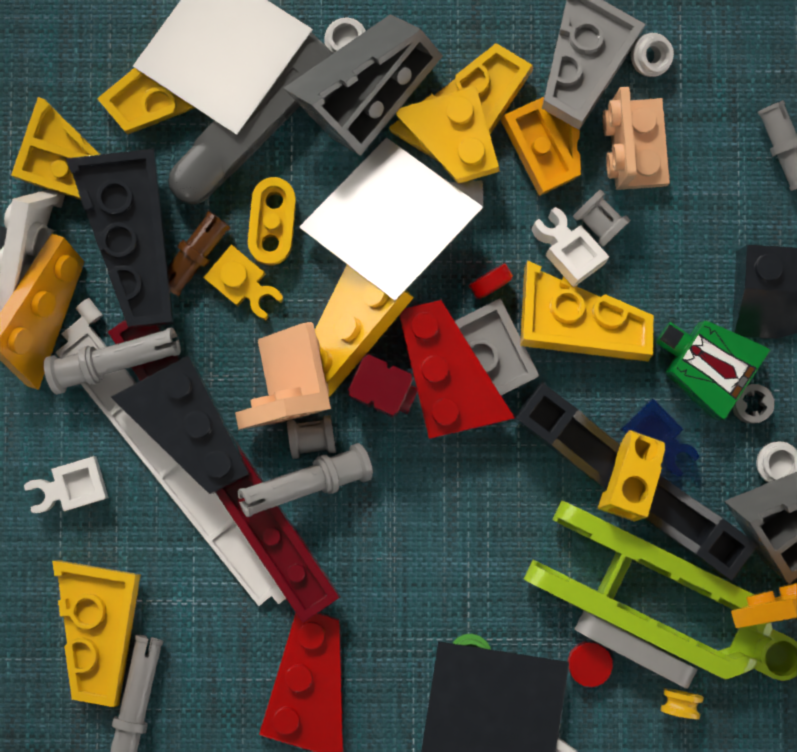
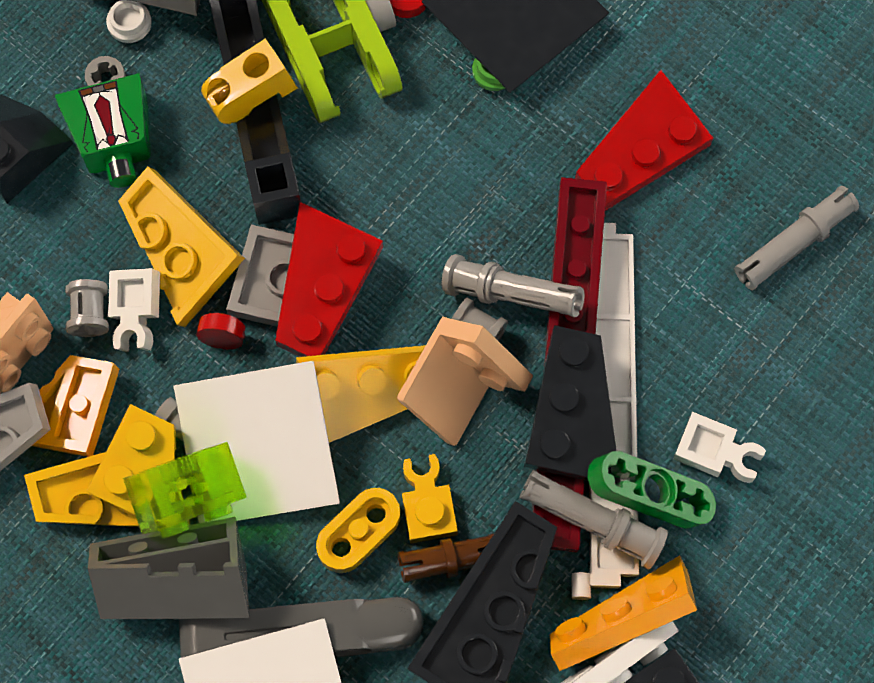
camera: 135 degrees left, 15 degrees down
(98, 627) = (778, 323): yellow wing -> none
(102, 412) = (633, 493): none -> green beam
(342, 32) = (157, 639): white plate -> none
(384, 387) = (385, 307): dark red brick -> none
(405, 139) = (158, 497): none -> clear neon green brick
(658, 424) = (195, 118): clear blue plate -> none

